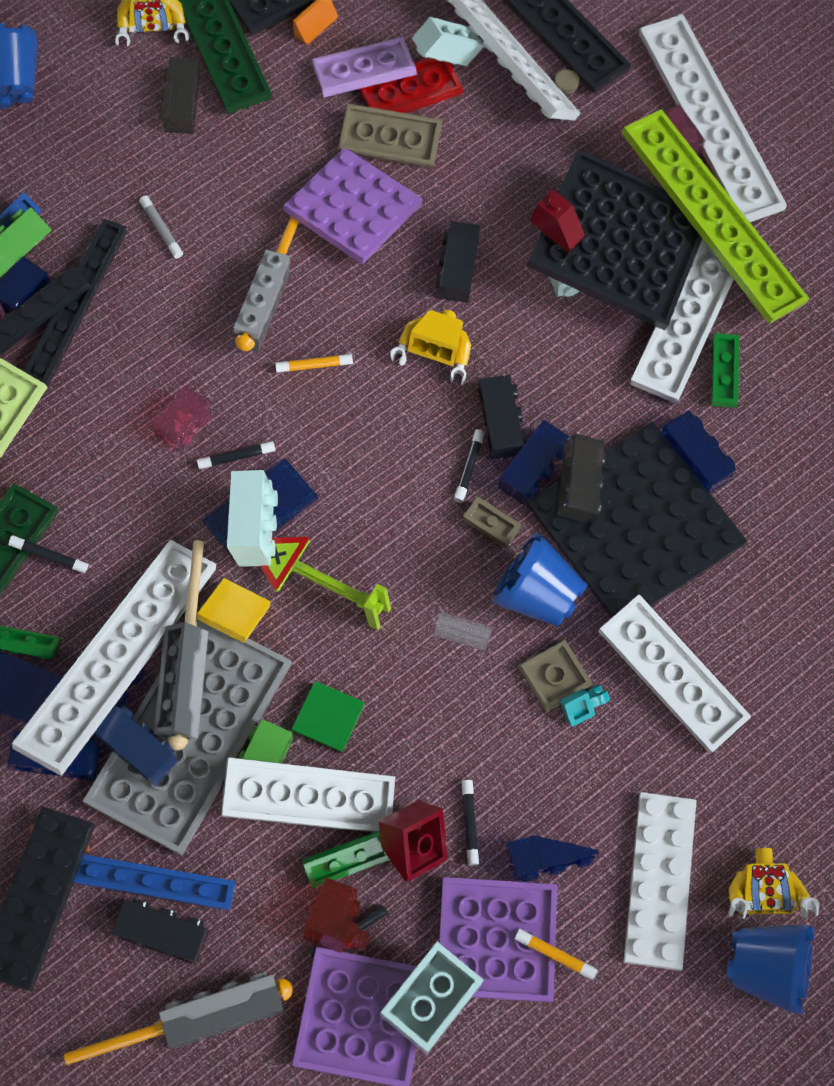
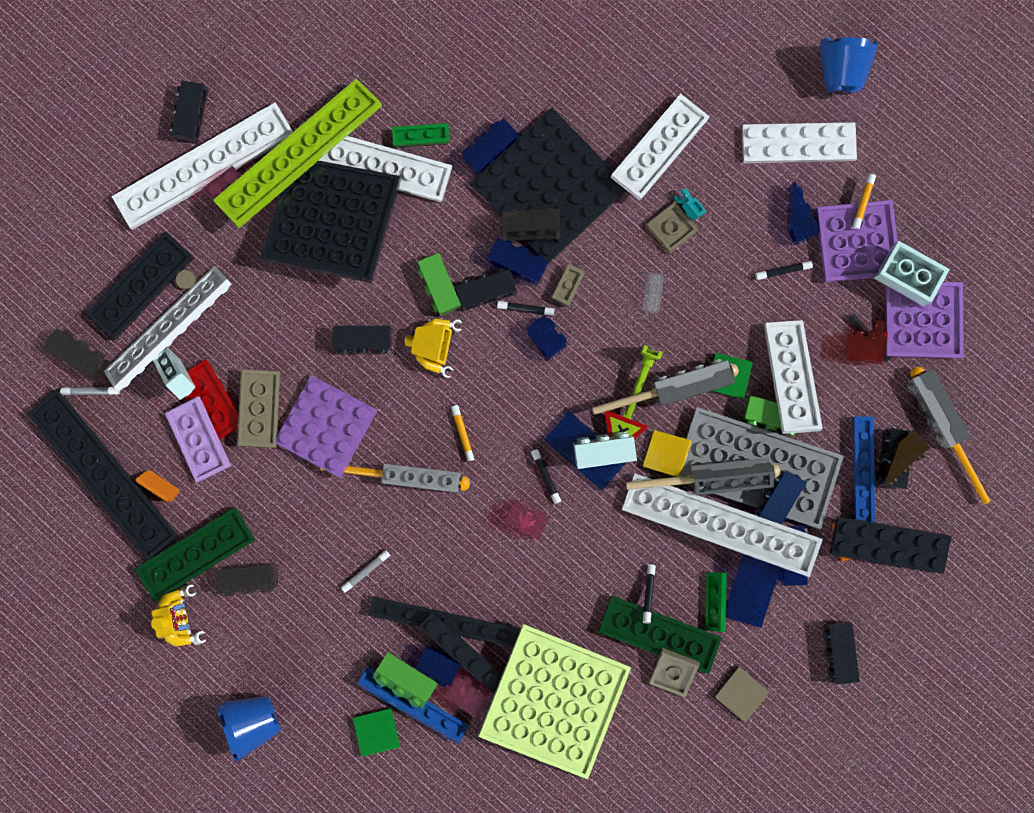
camera: 95 degrees left, 15 degrees up
(162, 932) = (903, 454): none -> dark brown slope
(323, 641) = (681, 386): none -> piece
(345, 859) = (825, 346): green plate -> none
(414, 839) = (807, 302): dark red slope -> none
(422, 481) = (546, 337): none -> clear blue brick
(518, 359) = (438, 285): none -> bright green brick
(539, 583) = (614, 245): blue cone -> none
(558, 220) = (334, 262): dark red slope -> none
(769, 889) = (795, 72): torso -> none
(783, 110) = (189, 111): none -> black brick

